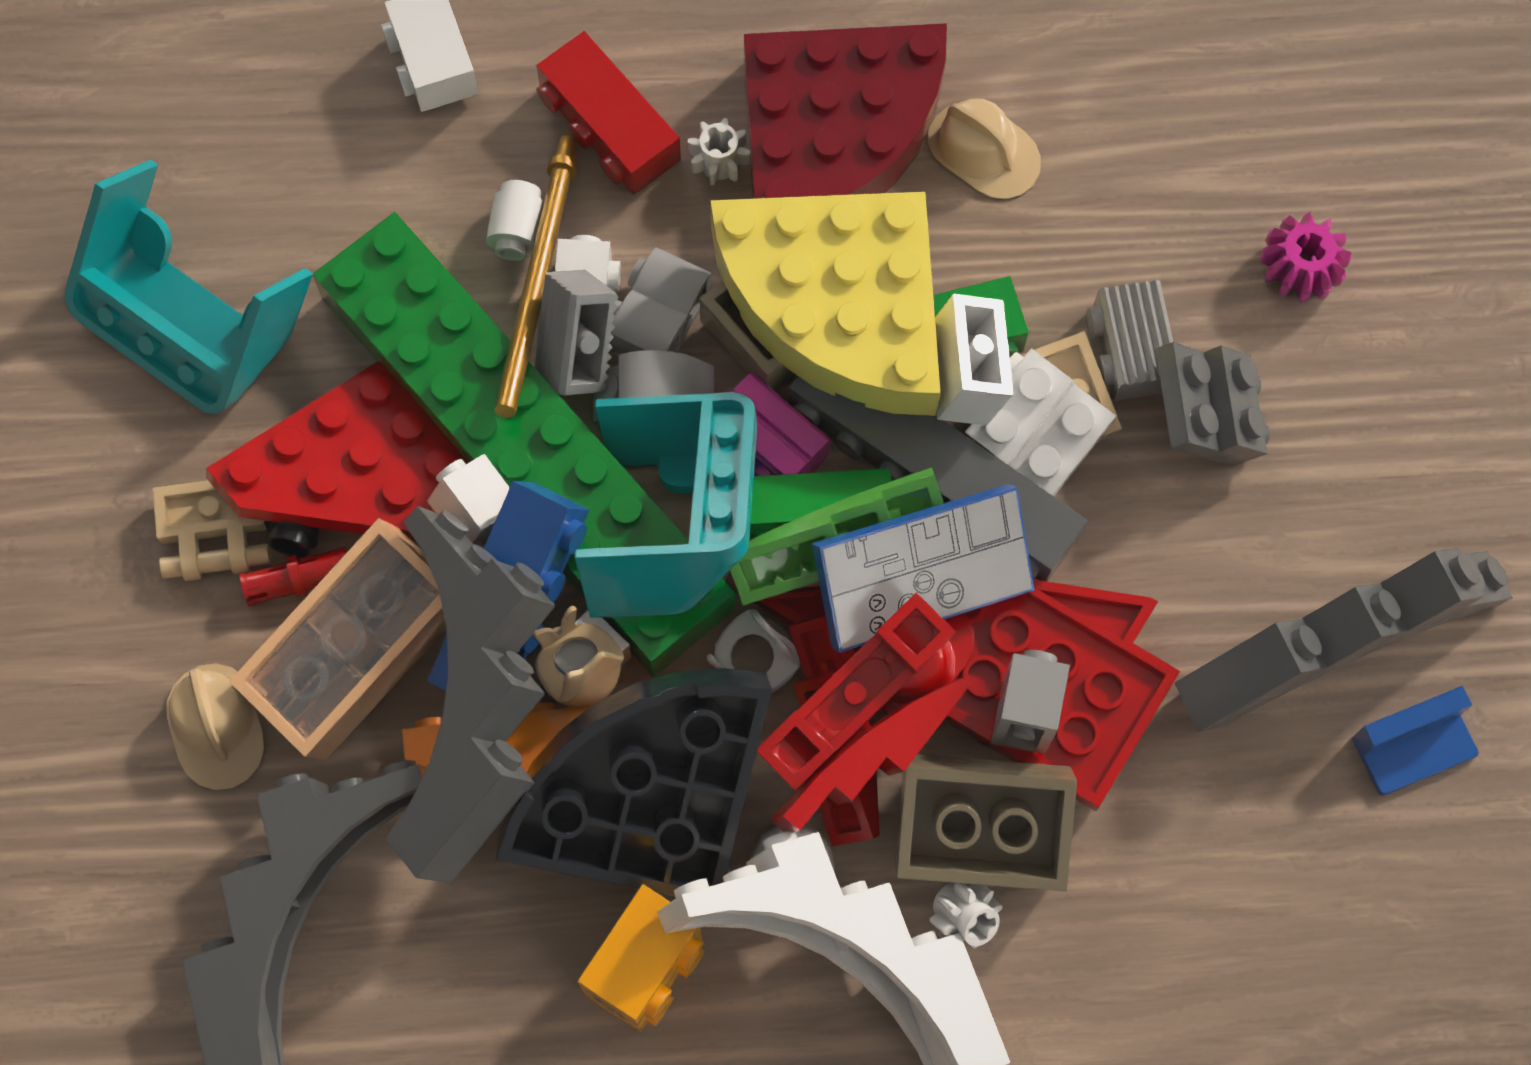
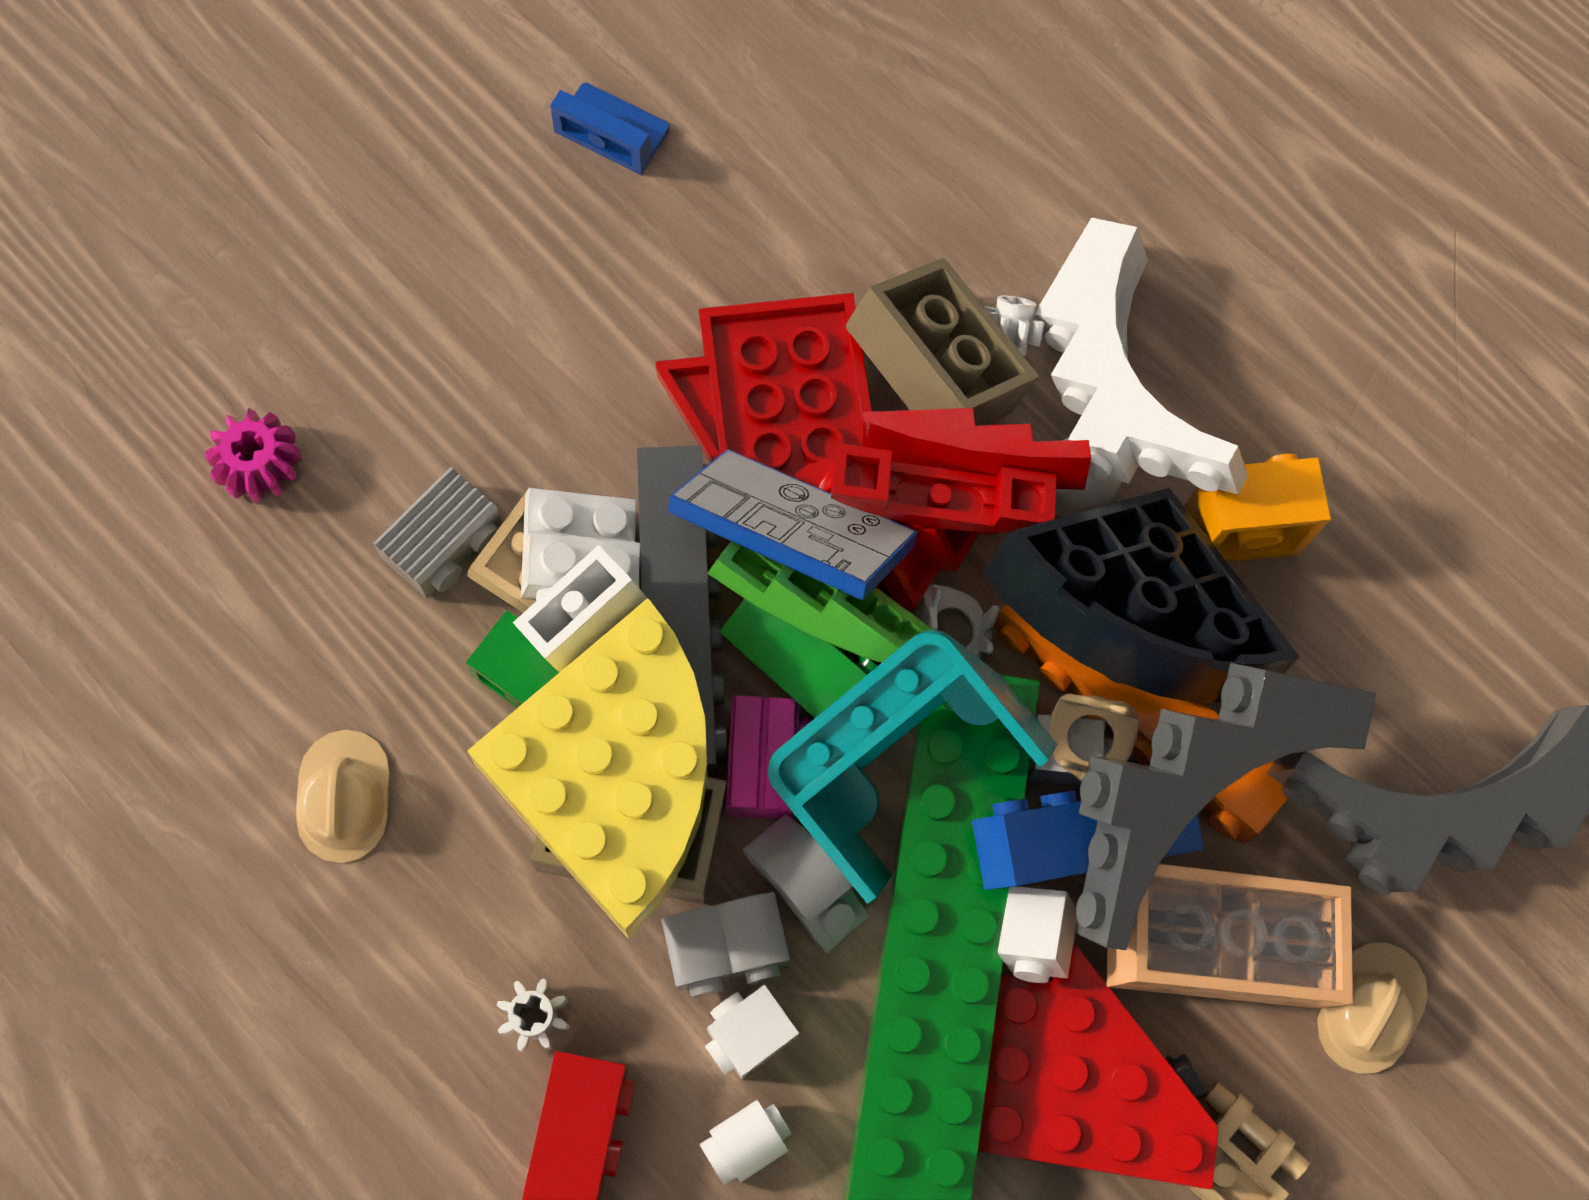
camera: 135 degrees left, 0 degrees up
(288, 578) = (1208, 1048): red pin -> none
(561, 170) = (661, 1145): pearl gold bar -> none
(575, 332) = (820, 976): light grey brick -> none
(839, 106) = (421, 935): dark red brick -> none
(1030, 702) = (833, 369): light grey brick -> none
(1212, 403) = (453, 427): dark grey plate -> none
(1345, 629) = (568, 182): dark grey arch -> none

